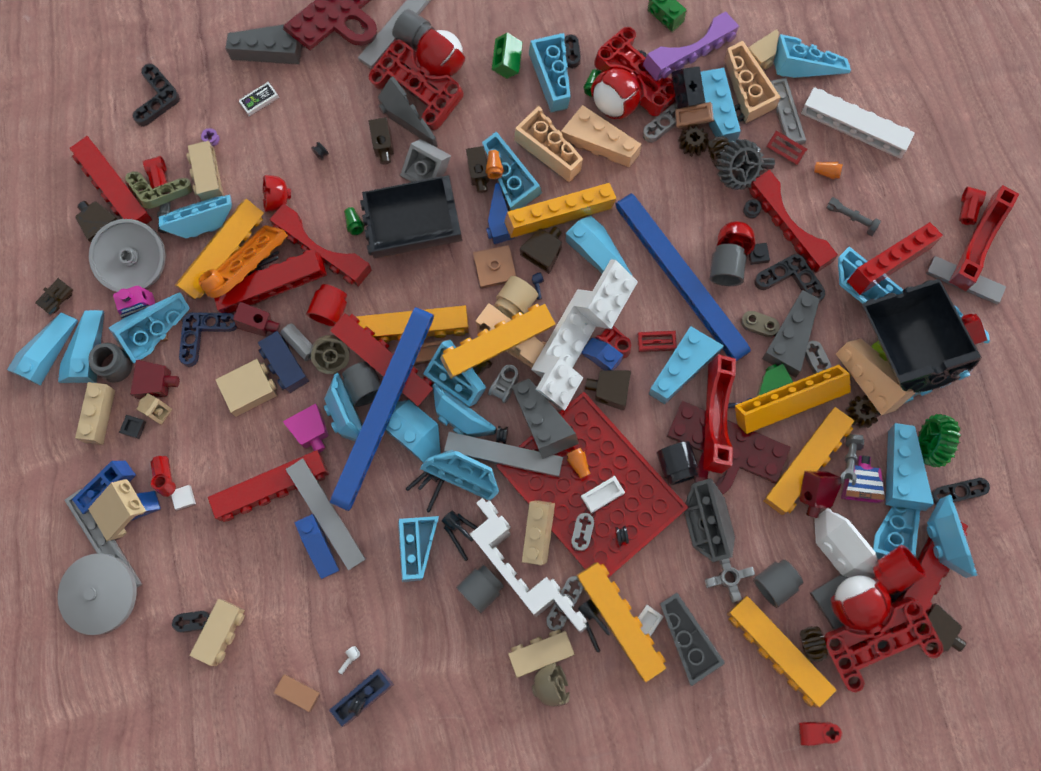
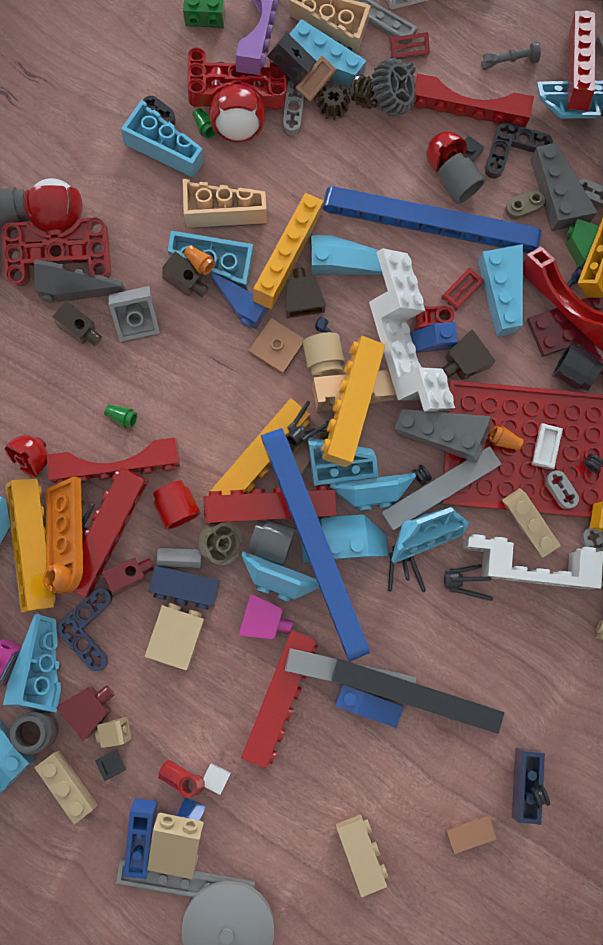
camera: 55 degrees left, 5 degrees up
(191, 616) = (325, 864): black beam -> none
(319, 150) = (29, 382): black bush -> none
(352, 570) = (417, 696): none -> black tile
(353, 653) = (484, 761): white hand -> none
(410, 217) = (172, 366): black cylinder -> none
(415, 544) = (447, 628): medium azure wedge -> none
(444, 332) = (298, 435): none -> black plant
(480, 588) = (531, 609): dark grey piece -> none
(502, 386) = (383, 433): light grey piece -> none
(507, 55) = (110, 160): green brick -> none
(600, 137) = (258, 162): light nougat wedge -> none
(753, 203) = (430, 112): black bush -> none
(829, 169) = (458, 35): orange cone -> none

